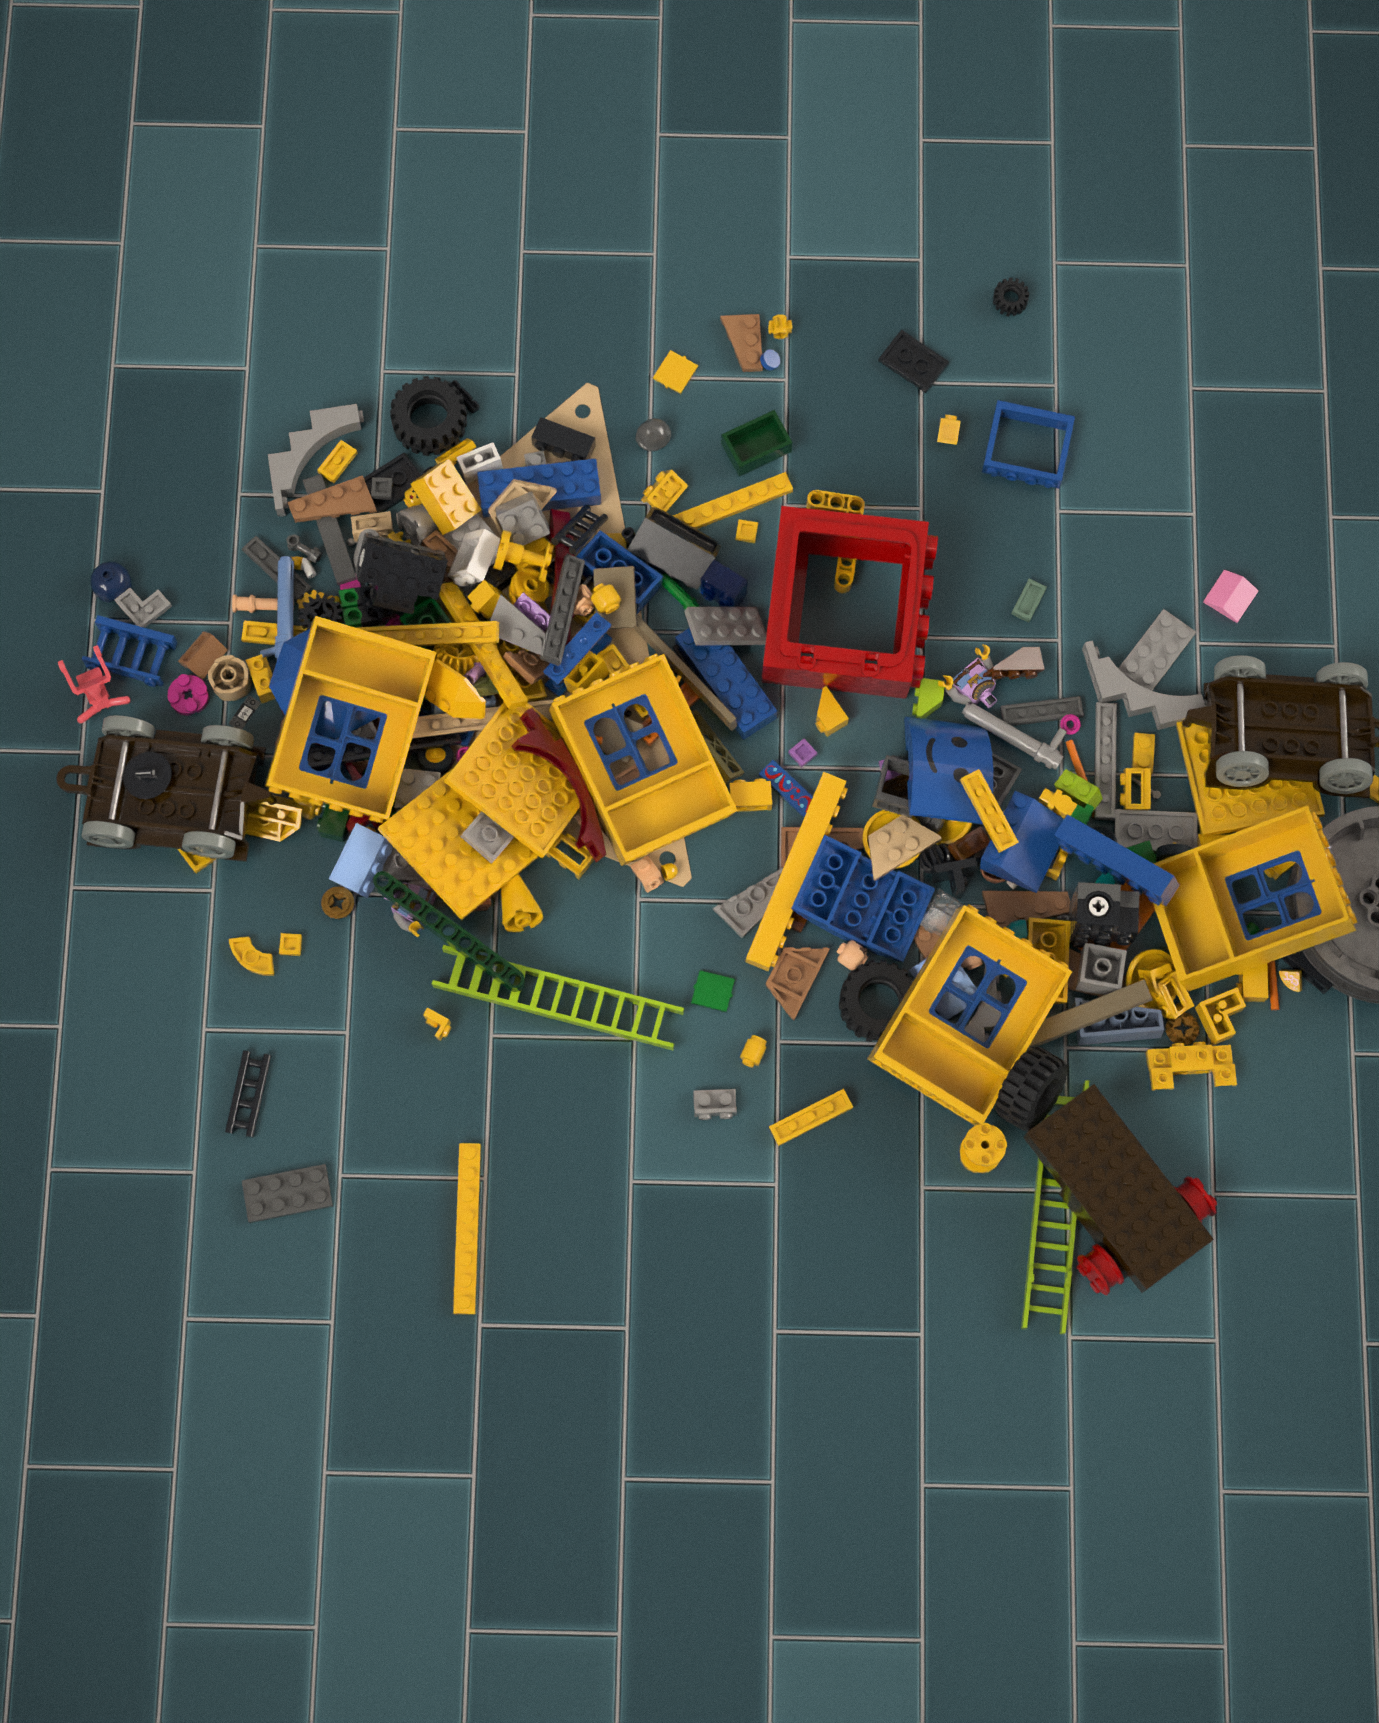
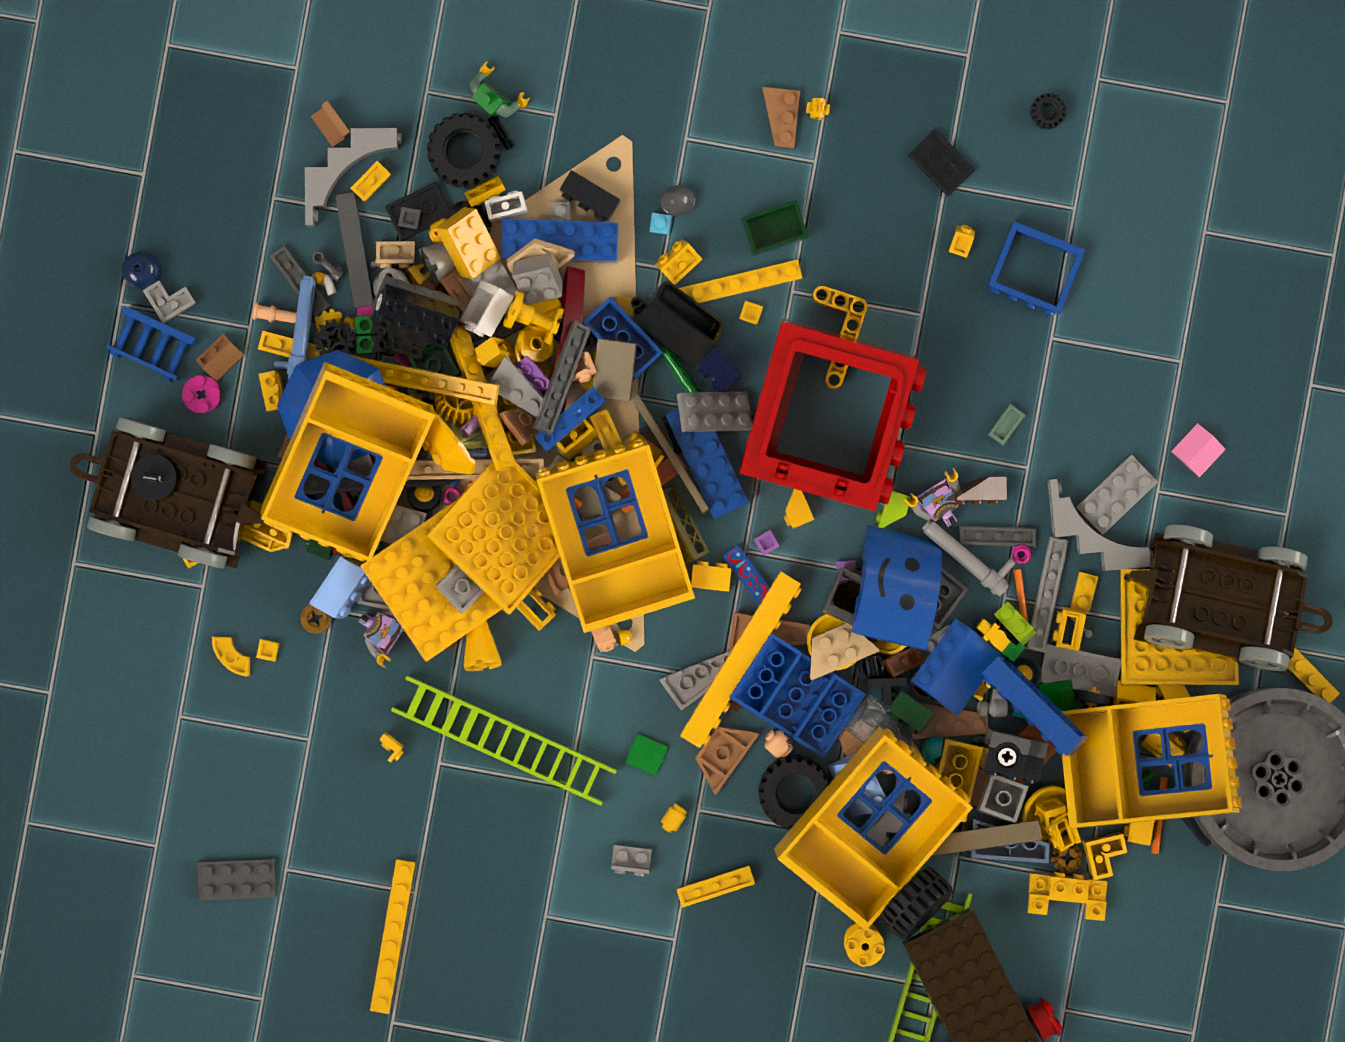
camera: 10 degrees right, 15 degrees up
(93, 686) = (114, 376): coral piece -> none
(219, 678) = (234, 379): tan brick -> none
(244, 712) = (252, 419): sticker -> none
(256, 1103) = (202, 789): black bar -> none
(289, 413) = (330, 124): none -> medium nougat panel
(341, 499) = (368, 223): medium nougat wing -> none
(444, 922) = (414, 677): dark green beam -> none
(450, 362) = (491, 97): none -> torso
(541, 743) = (522, 505): dark red slope -> none
(582, 538) = (592, 304): black bar -> none
(605, 598) = (604, 373): yellow head -> none
(638, 459) = (660, 223): none -> medium azure plate
(675, 372) = (709, 137): yellow piece -> none
(770, 360) = (802, 141): tile -> none
(987, 895) = (911, 712): none -> dark green brick
(989, 810) = (926, 641): yellow plate -> none
(1075, 874) = (996, 707): none -> light grey piece
(1250, 890) = (1153, 744): none -> yellow bracket
(1292, 979) = (1176, 828): yellow tile -> none

